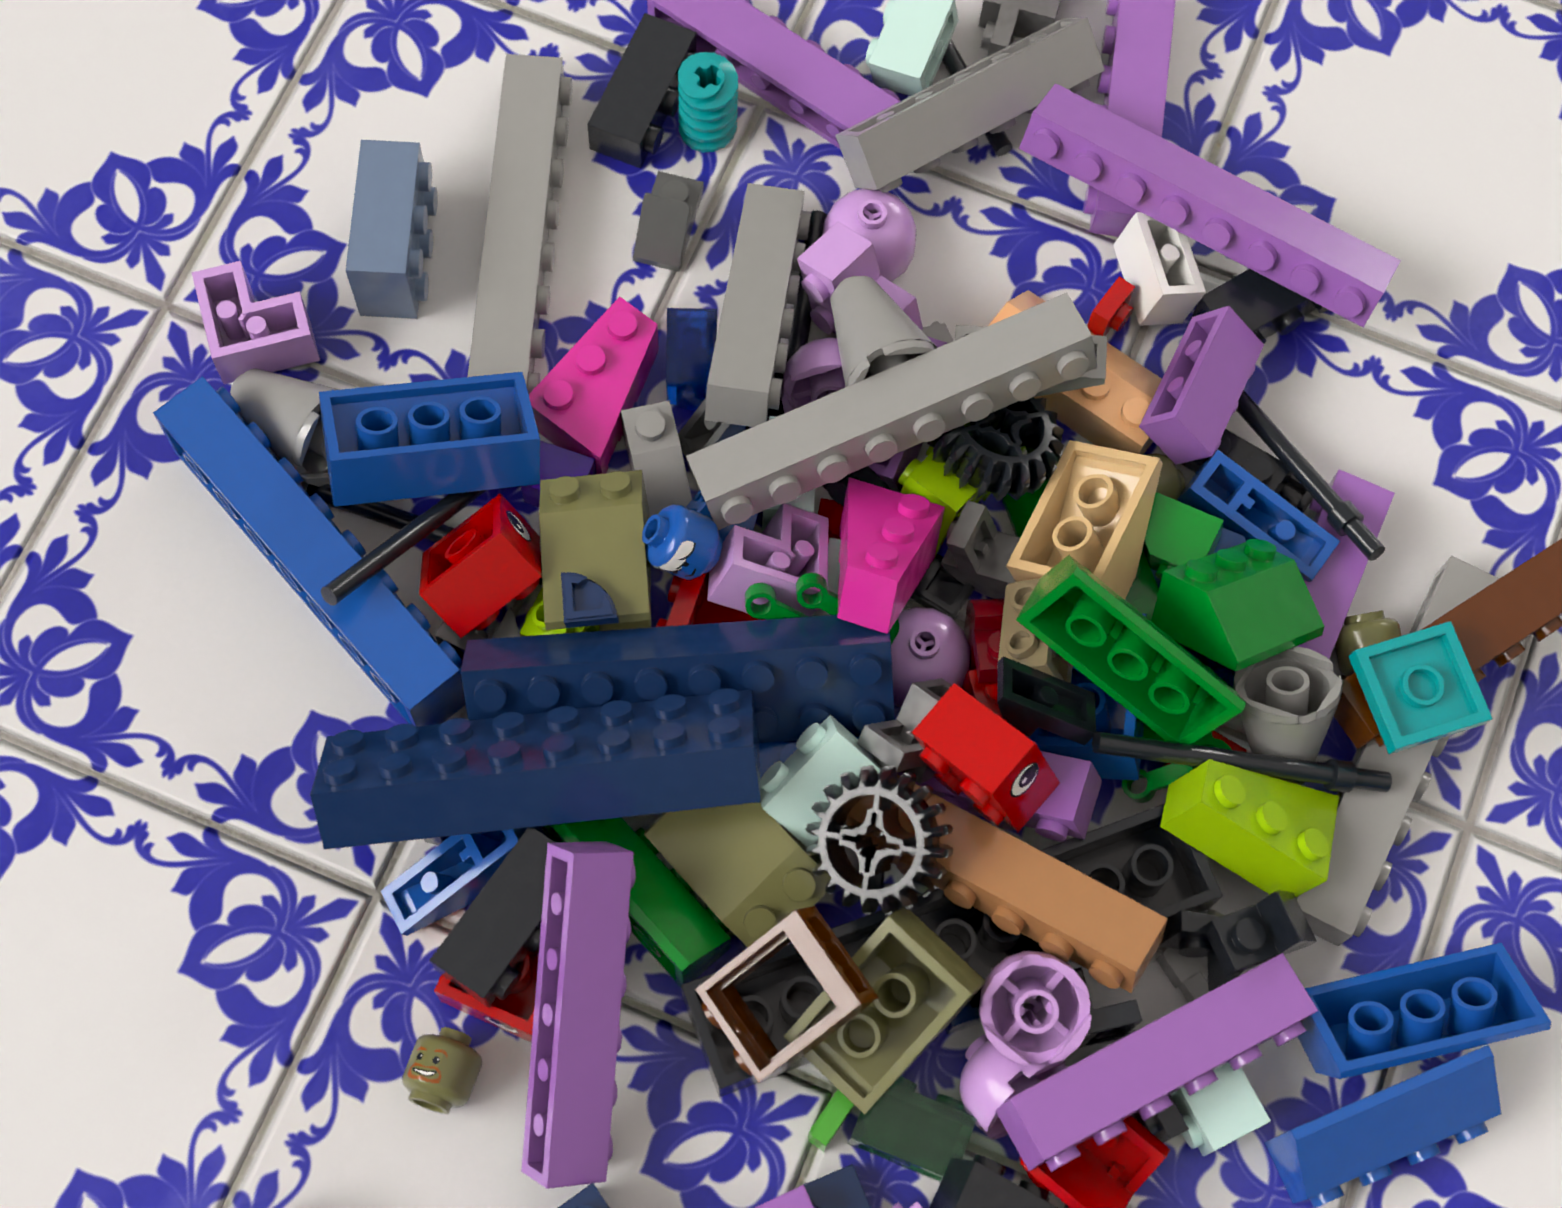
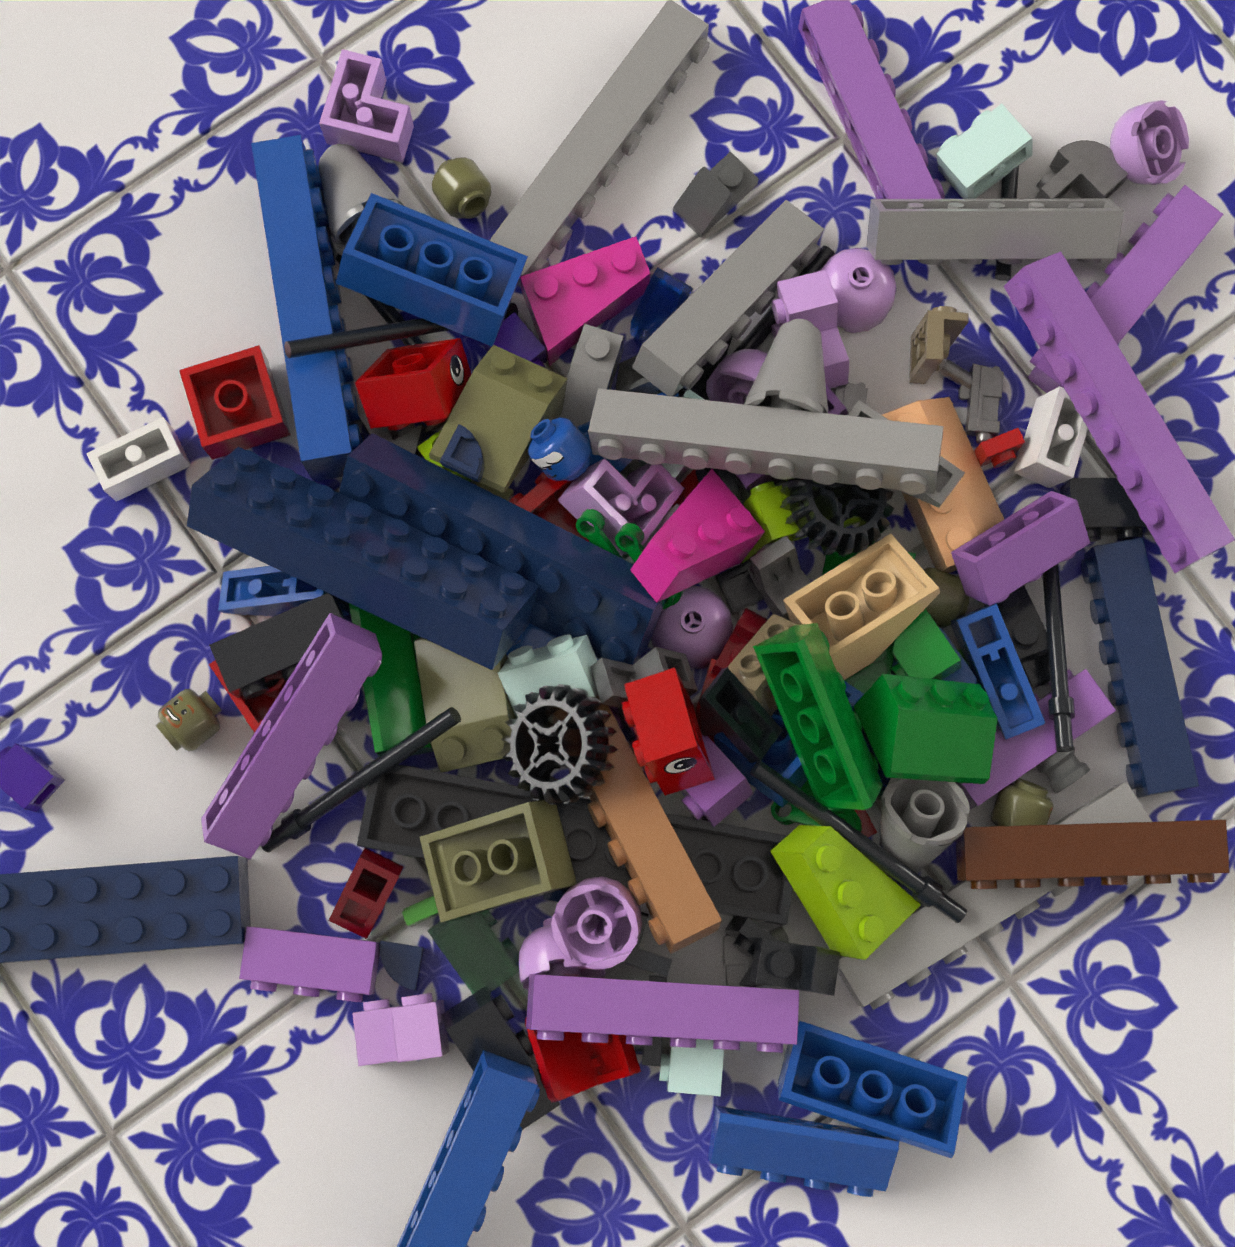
camera: 35 degrees right, 10 degrees up
(216, 819) = (138, 459): none -> white brick
(289, 698) = (234, 402): none -> red brick
(391, 229) = (503, 91): sand blue brick -> none
(401, 350) = (461, 188): none -> olive head
(634, 1108) = (299, 821): none -> black bar
(641, 92) = (757, 82): black brick -> none
(707, 101) = (795, 118): teal piece -> none
(757, 1132) = (366, 893): none -> dark red brick
(827, 962) = (467, 810): reddish brown window -> none
(983, 241) = (932, 341): none -> dark tan bracket
(1058, 266) = (983, 391): none -> flat silver piece
(1381, 583) = (1063, 769): none -> dark grey wheel
(1385, 442) = (1139, 668): none -> dark blue brick
(1420, 687) = (1020, 866): teal plate -> none

